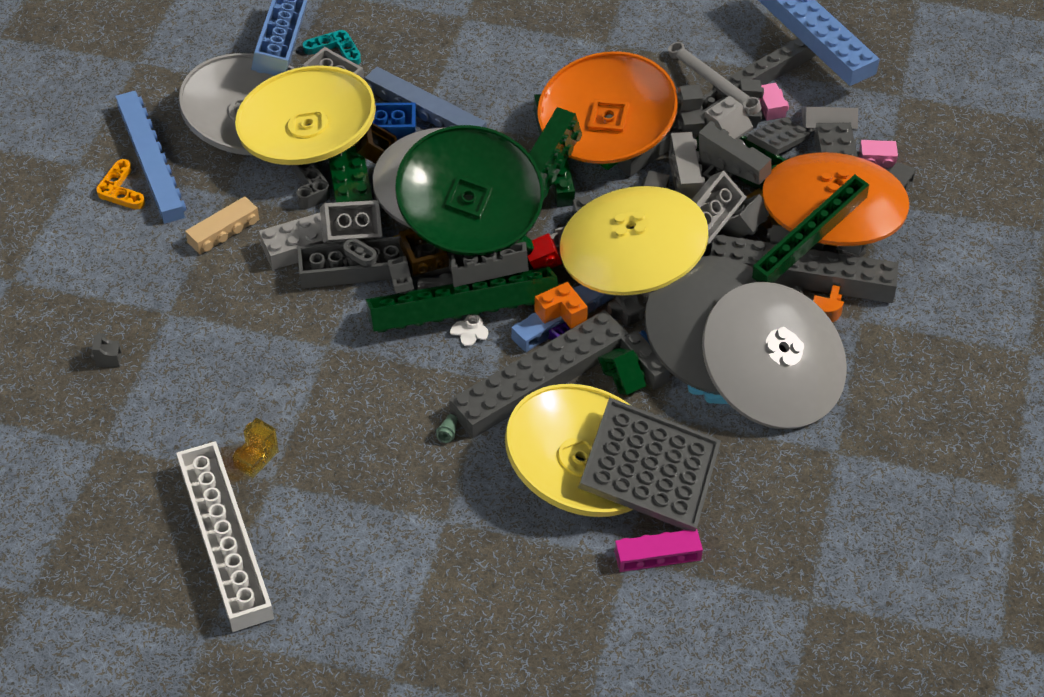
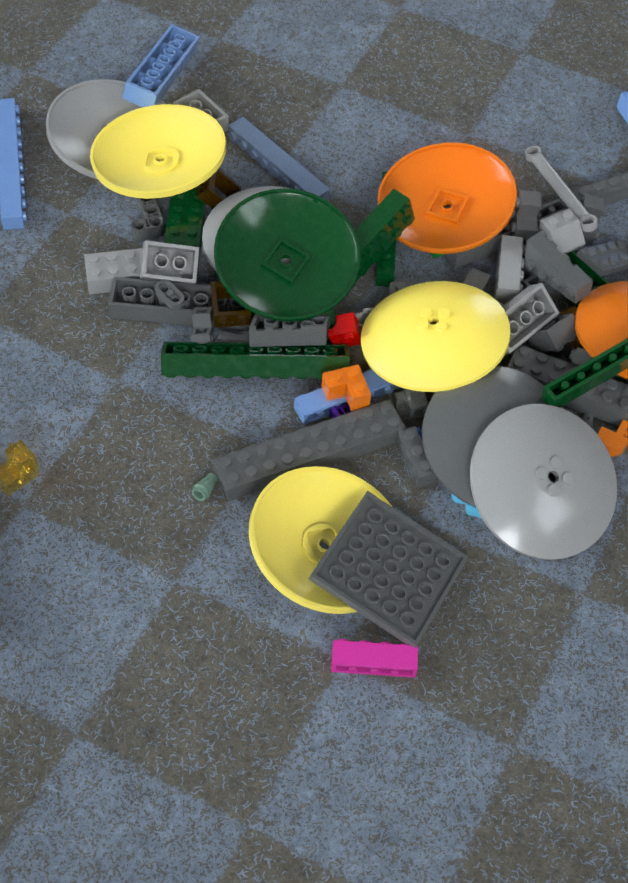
camera: 10 degrees right, 5 degrees up
(222, 225) = (54, 242): tan brick -> none
(311, 45) = (213, 85): teal beam -> none
(396, 118) = (244, 169): blue brick -> none
(470, 332) = (254, 393): white plate -> none
(624, 368) = (392, 464): dark green brick -> none
(773, 103) = (613, 223): bright pink brick -> none

